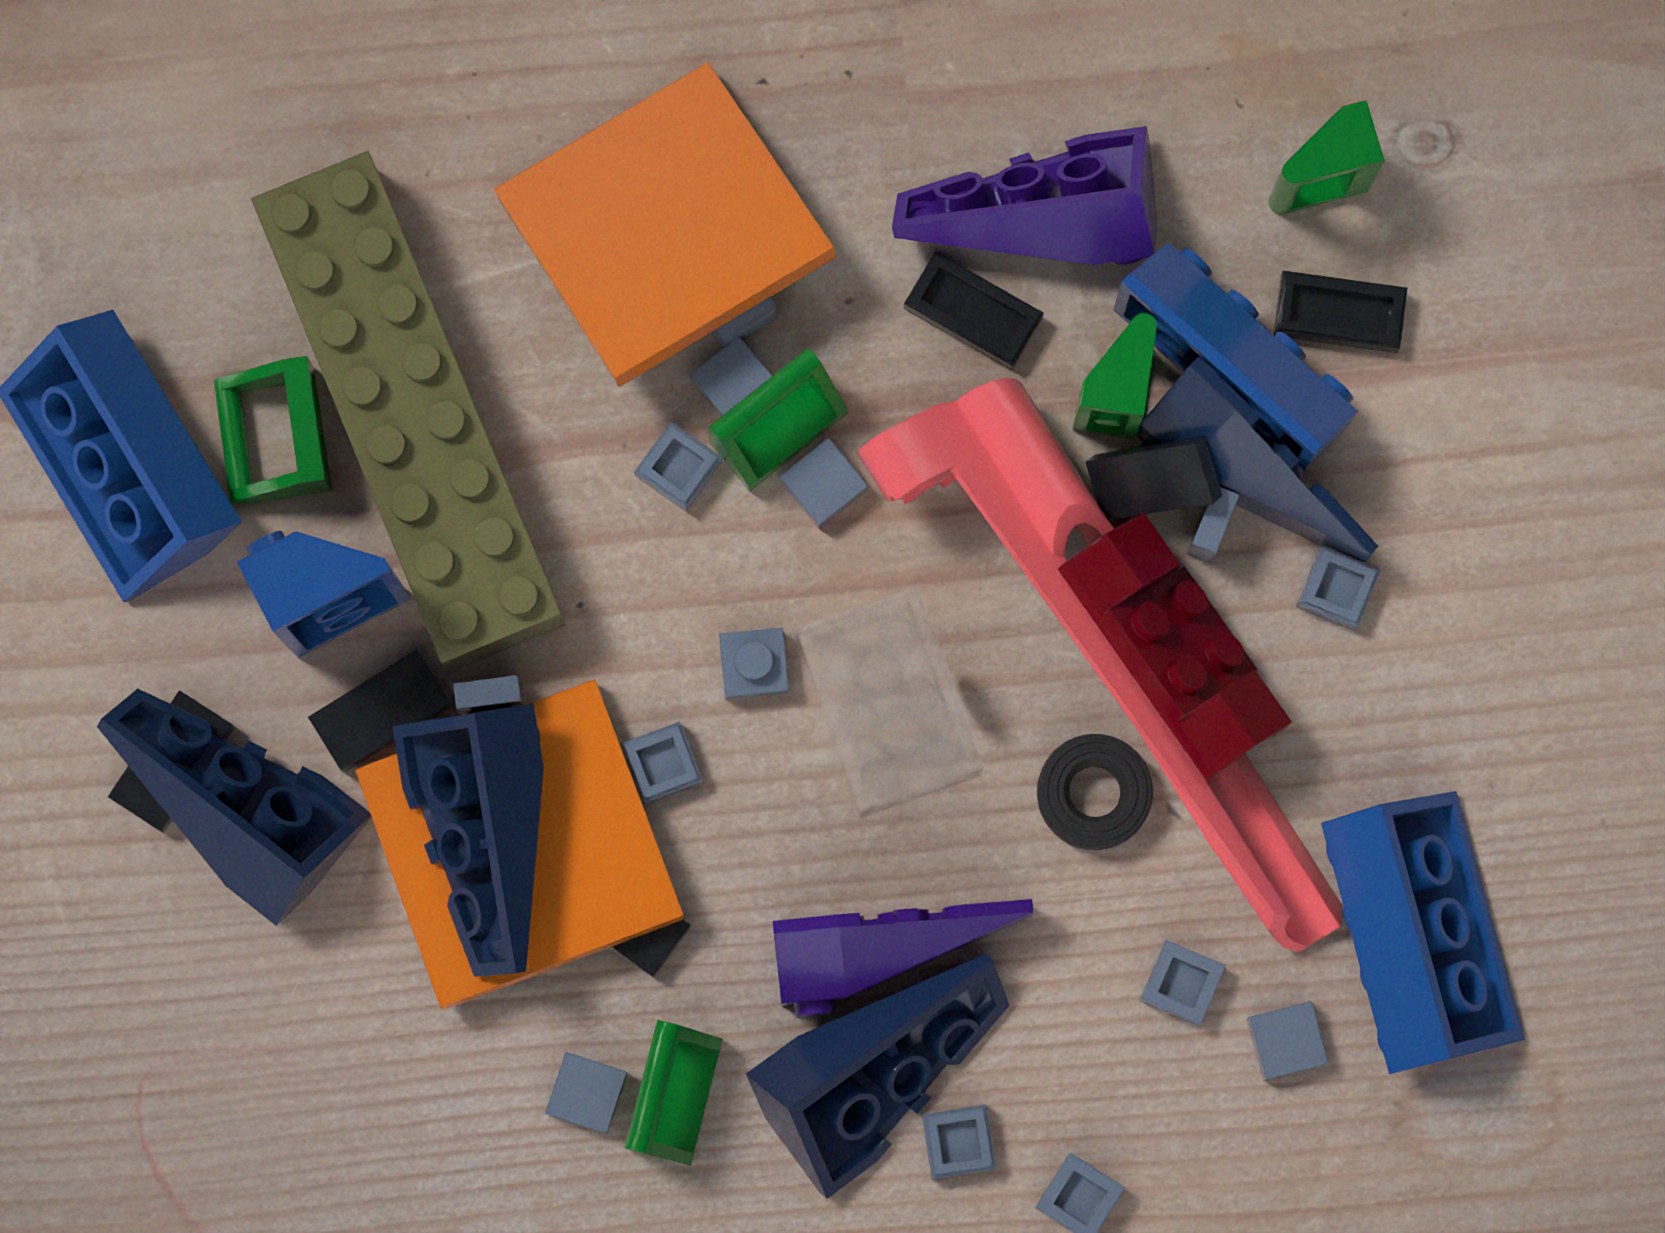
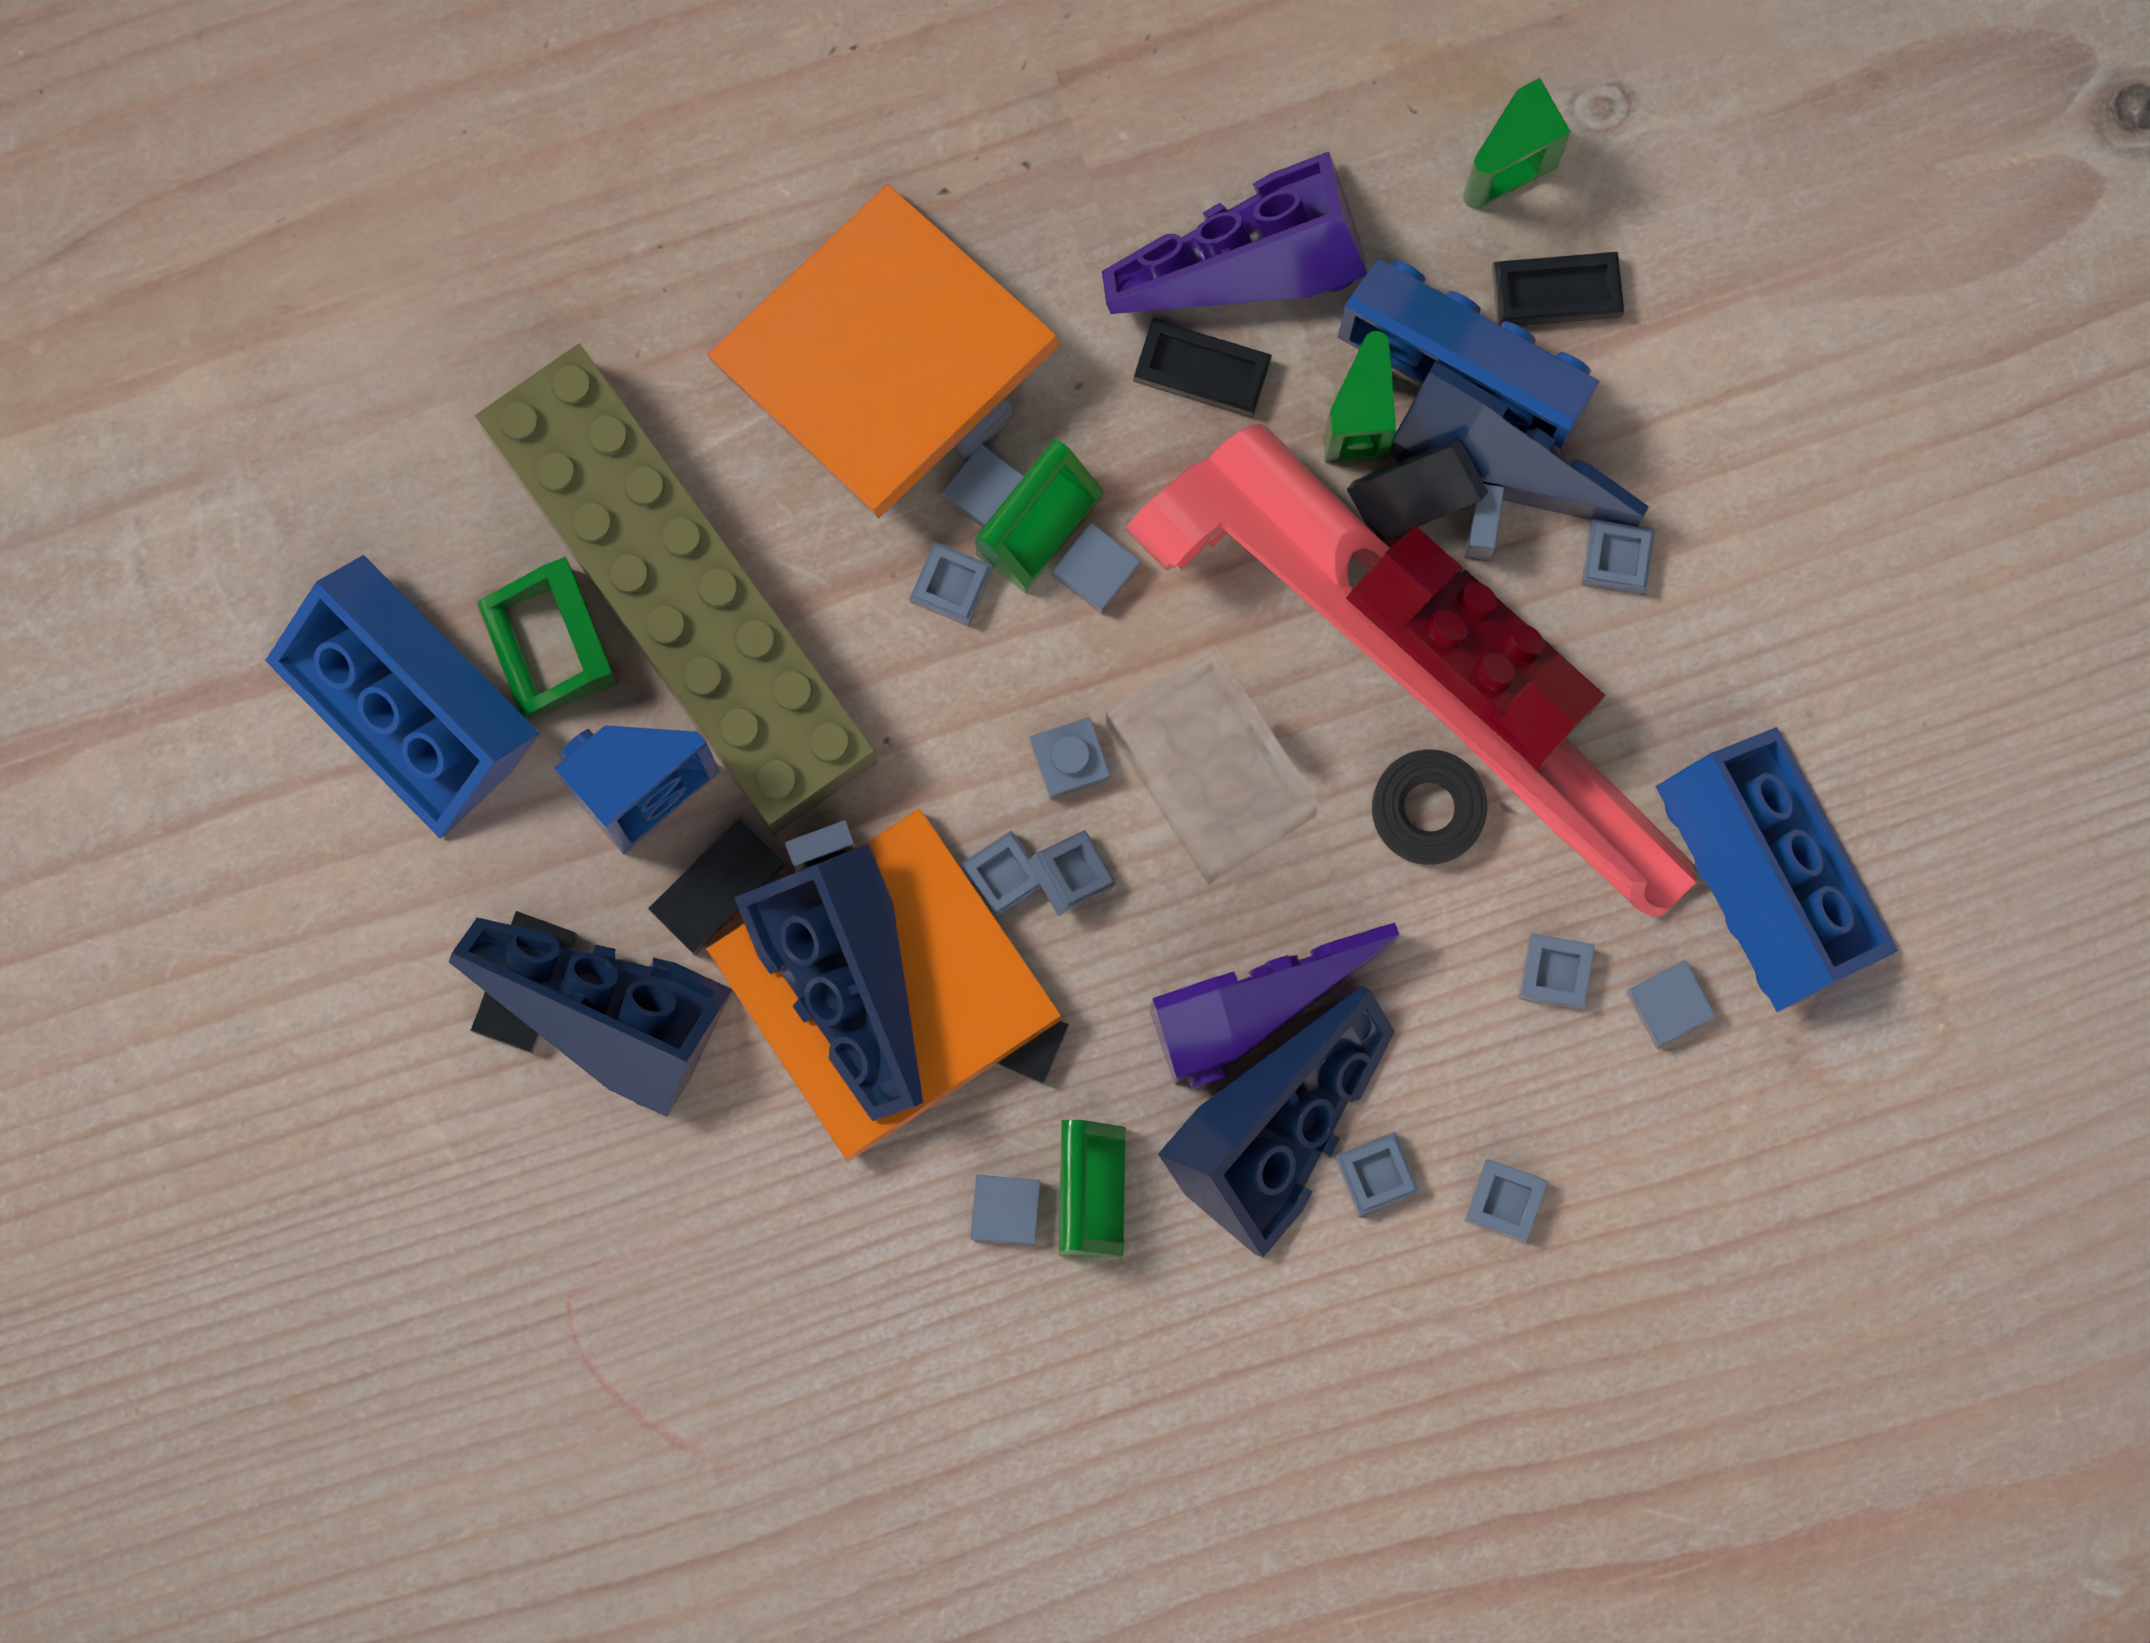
camera: 15 degrees left, 0 degrees up
(728, 776) = (1071, 872): none -> sand blue tile

